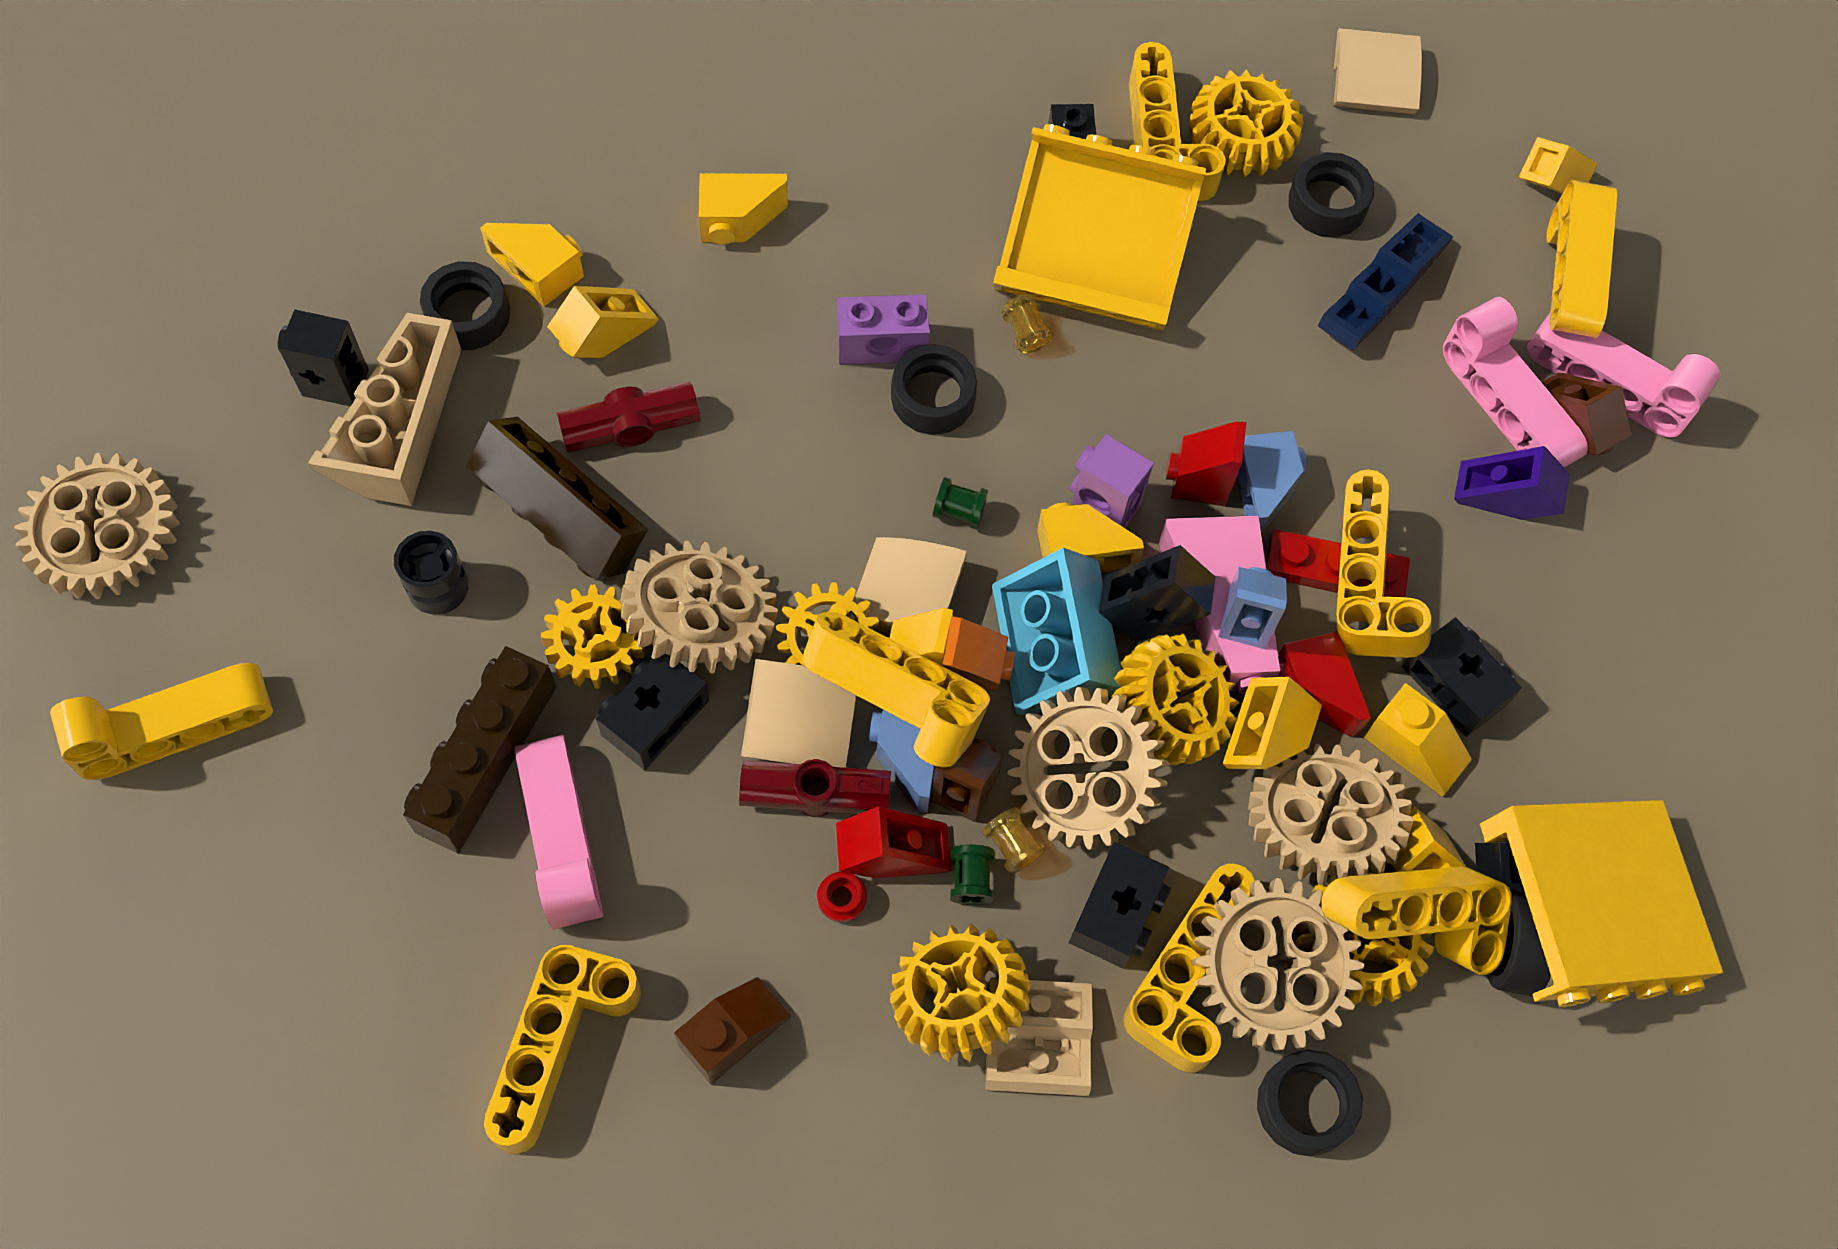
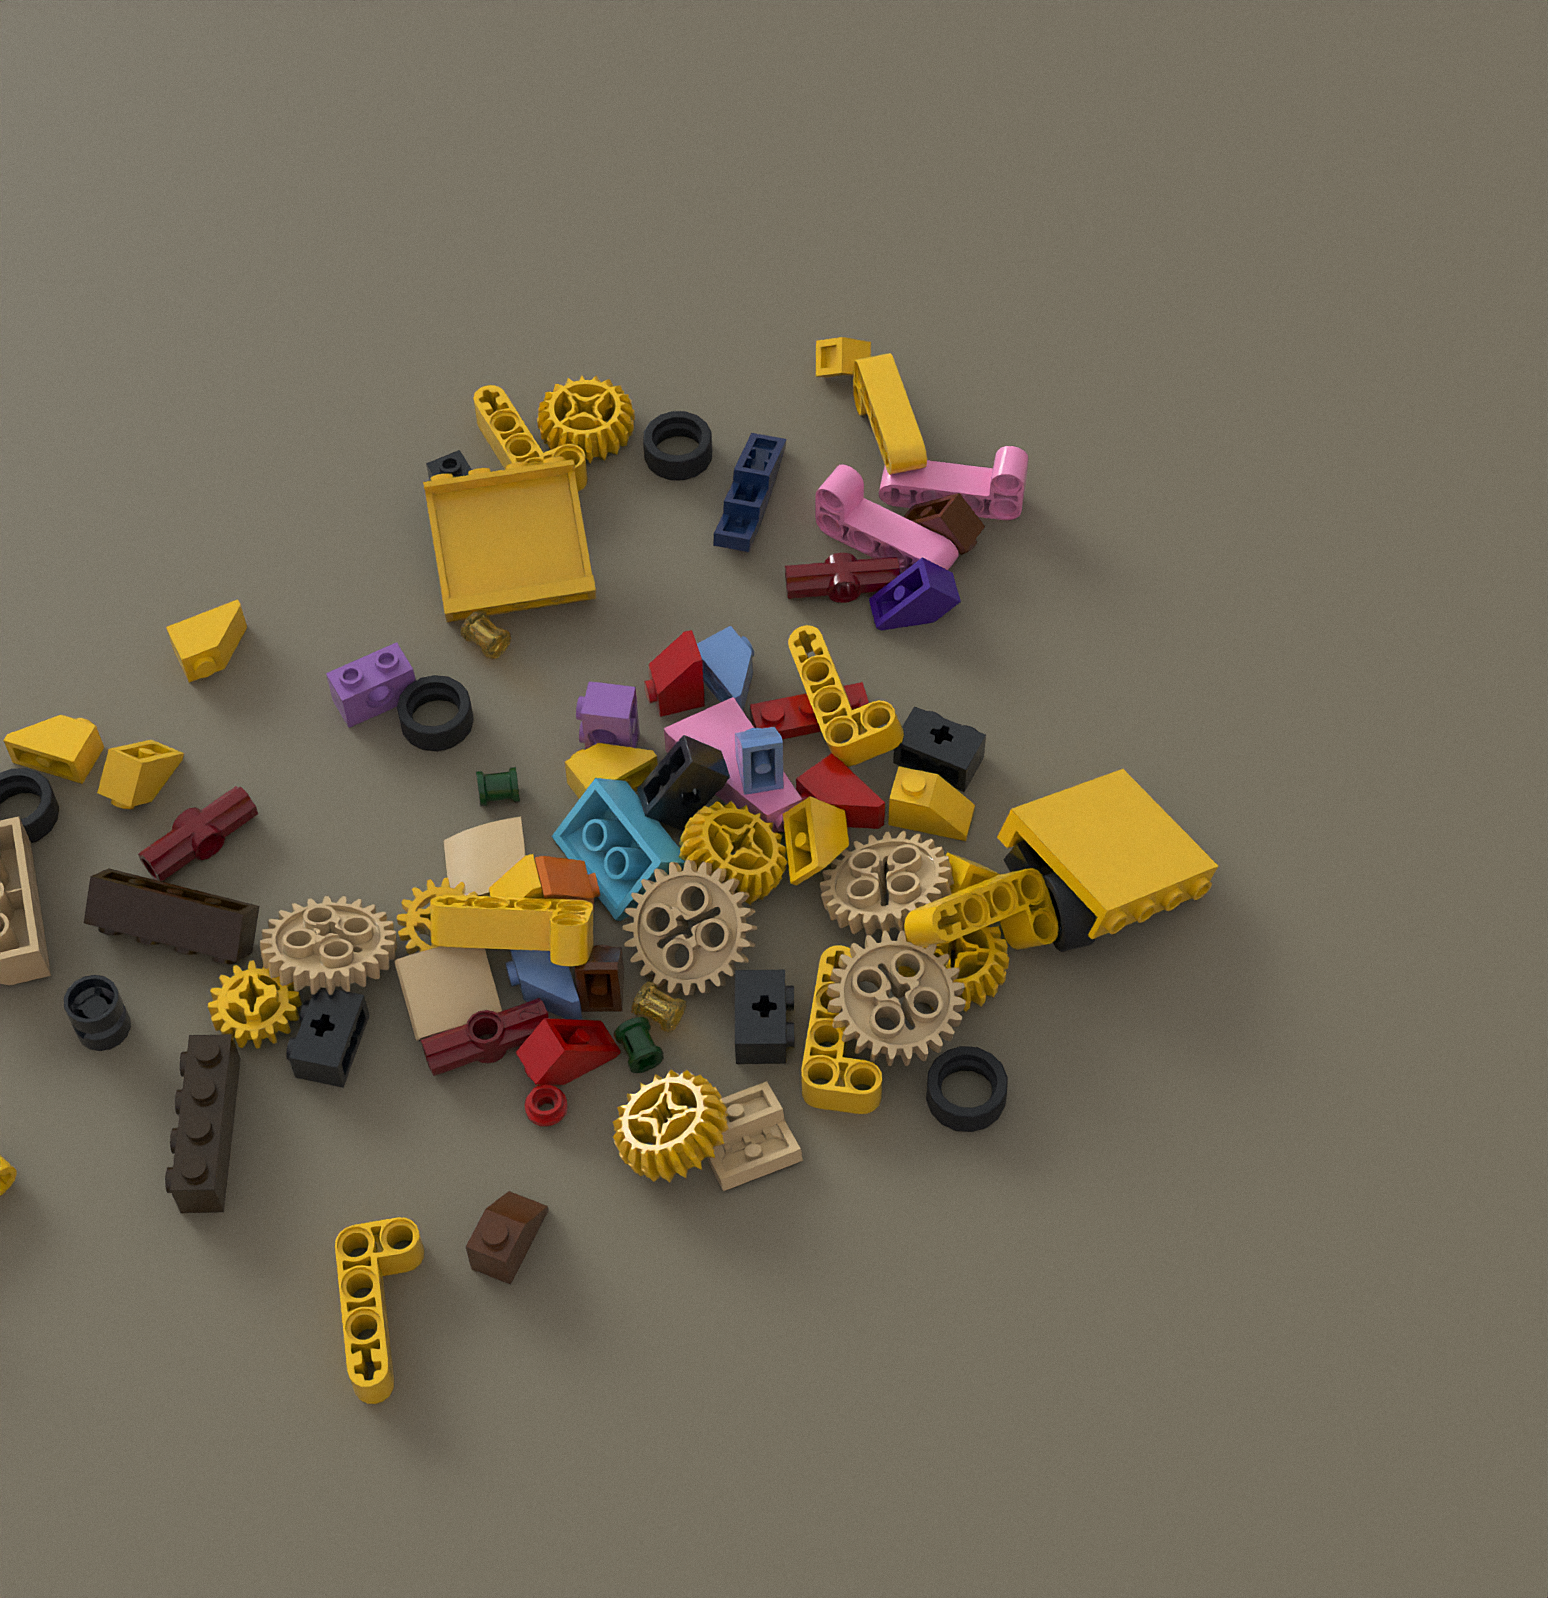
camera: 20 degrees left, 10 degrees down
(558, 833) = (318, 1177): bright pink beam -> none
(1378, 71) = (670, 340): tan slope -> none
(1442, 424) = (840, 577): none -> dark red piece

